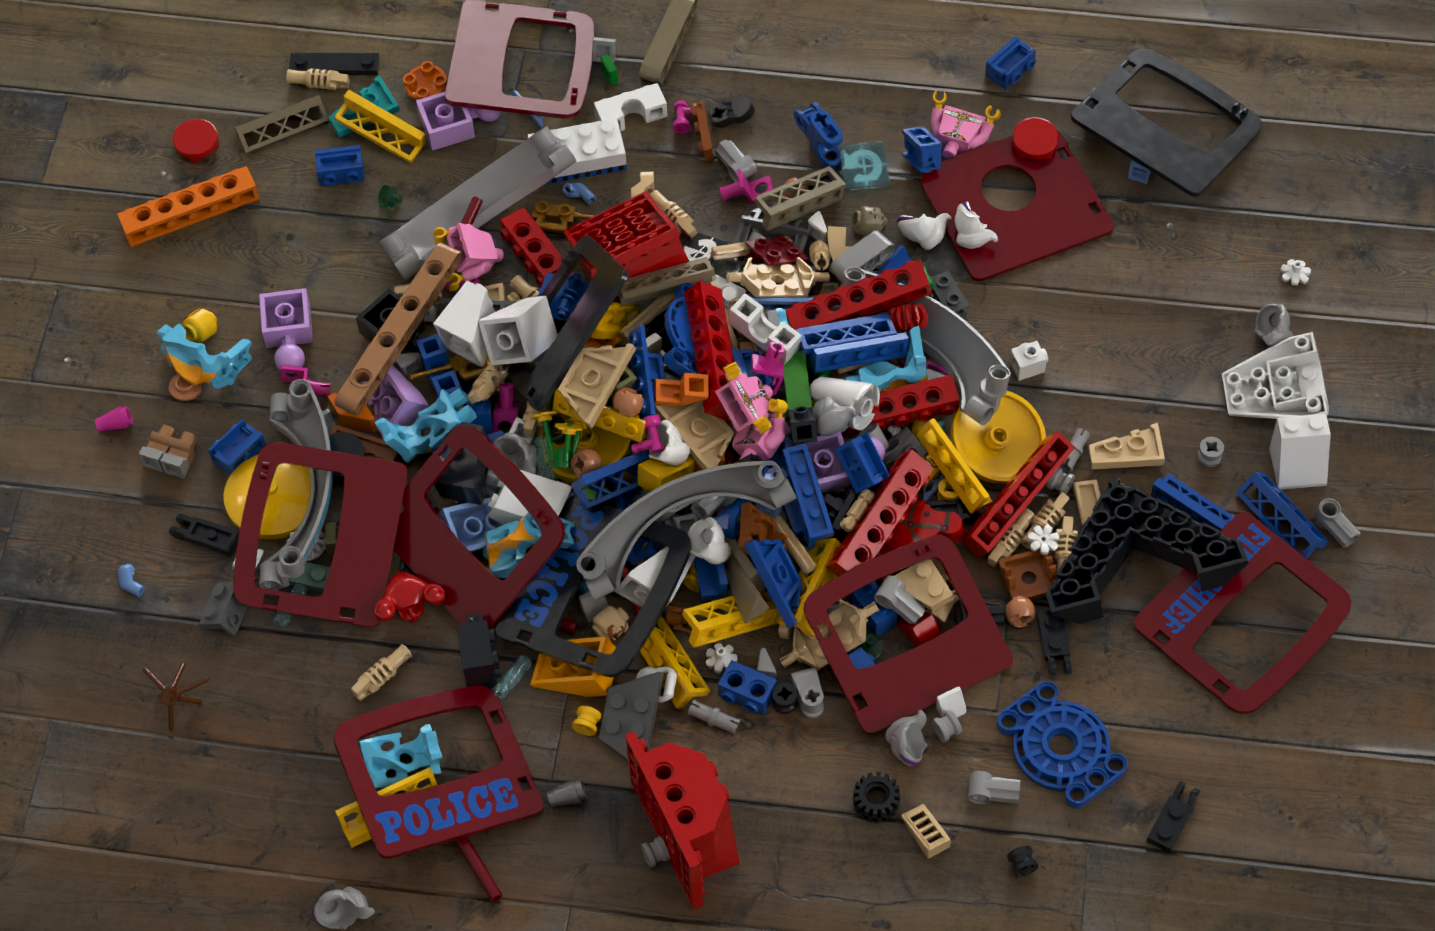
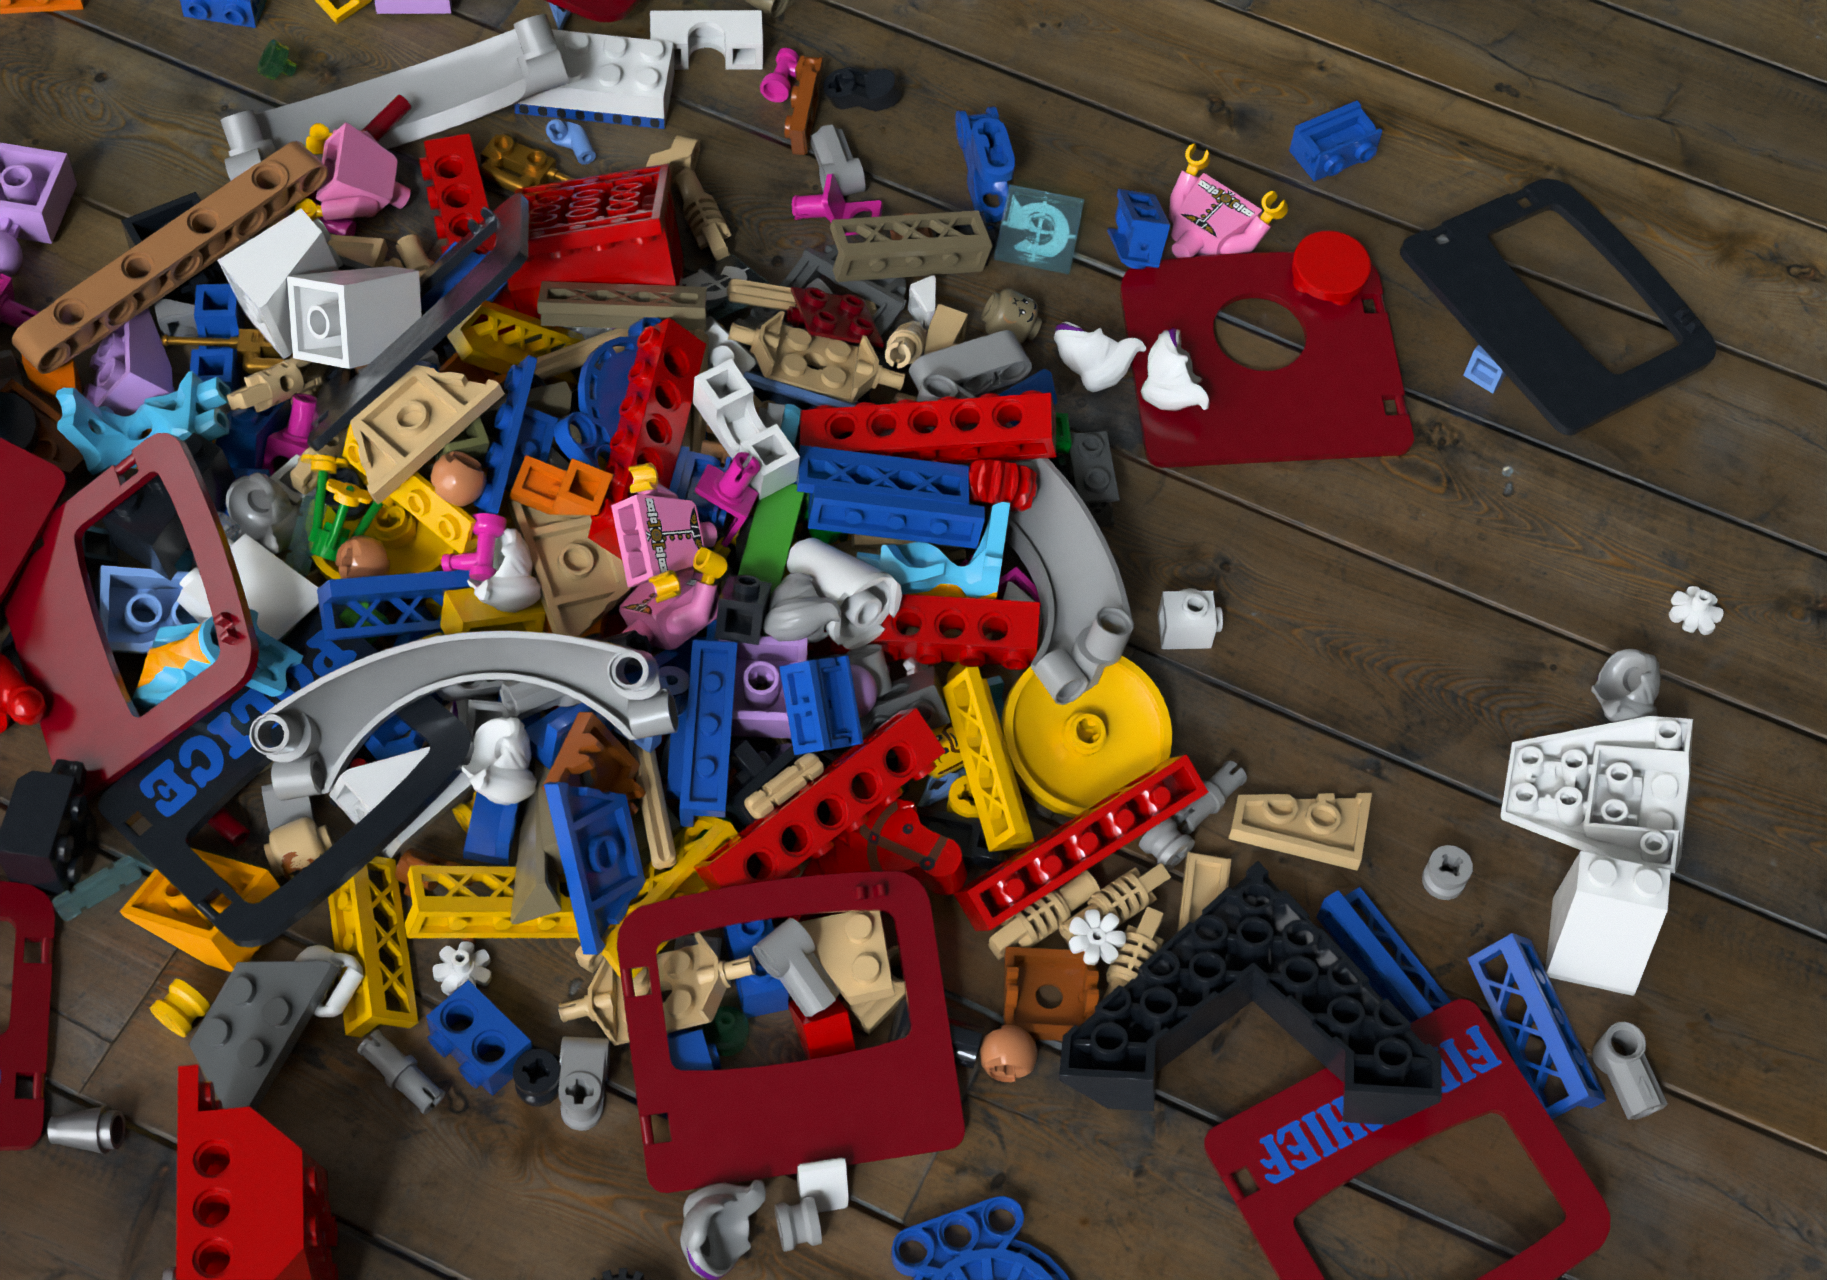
camera: 10 degrees right, 0 degrees up
(765, 664) = (525, 1010): light grey slope -> none
(1054, 641) = (1050, 1128): black hinge -> none

